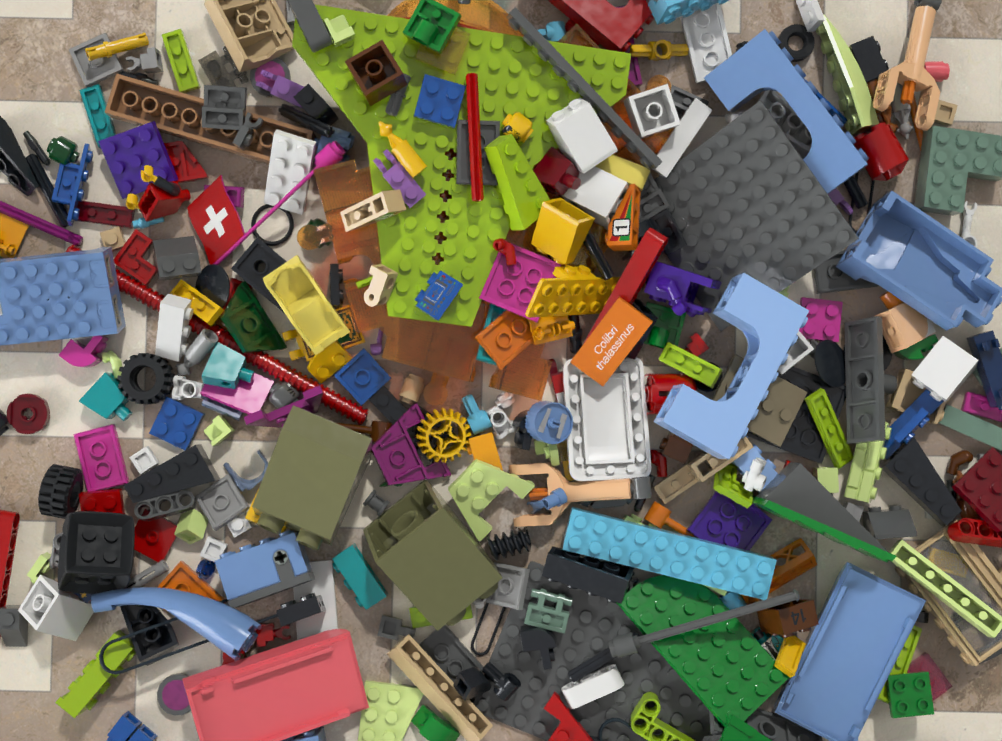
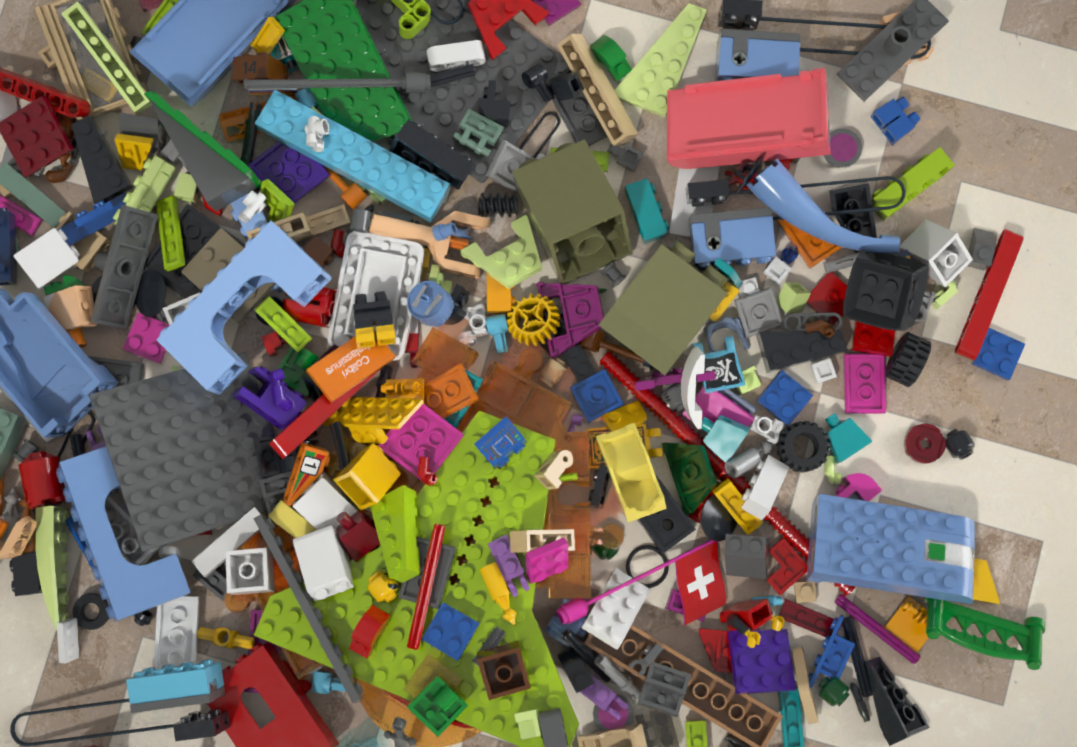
camera: 165 degrees left, 5 degrees down
(92, 149) = (804, 686): none -> tan beam
(153, 501) = (820, 325): none -> reddish brown arm
(245, 438) = (725, 365): none -> flag
(257, 530) = (729, 272): none -> teal tile
(266, 107) = (624, 682): none -> light grey pin
(269, 423) = (693, 366): none -> white slope
(270, 636) = (743, 167): none -> black shield
(362, 191) = (547, 560): none -> dark pink plate
(518, 81) = (368, 631): none -> red brick
(602, 396) = (370, 314): none -> black hips
(712, 566) = (314, 133): none -> white plate
(779, 552) = (250, 132): none -> black pin
(892, 502) = (133, 150): none -> yellow wing
(905, 178) = (26, 449): none -> dark grey bush

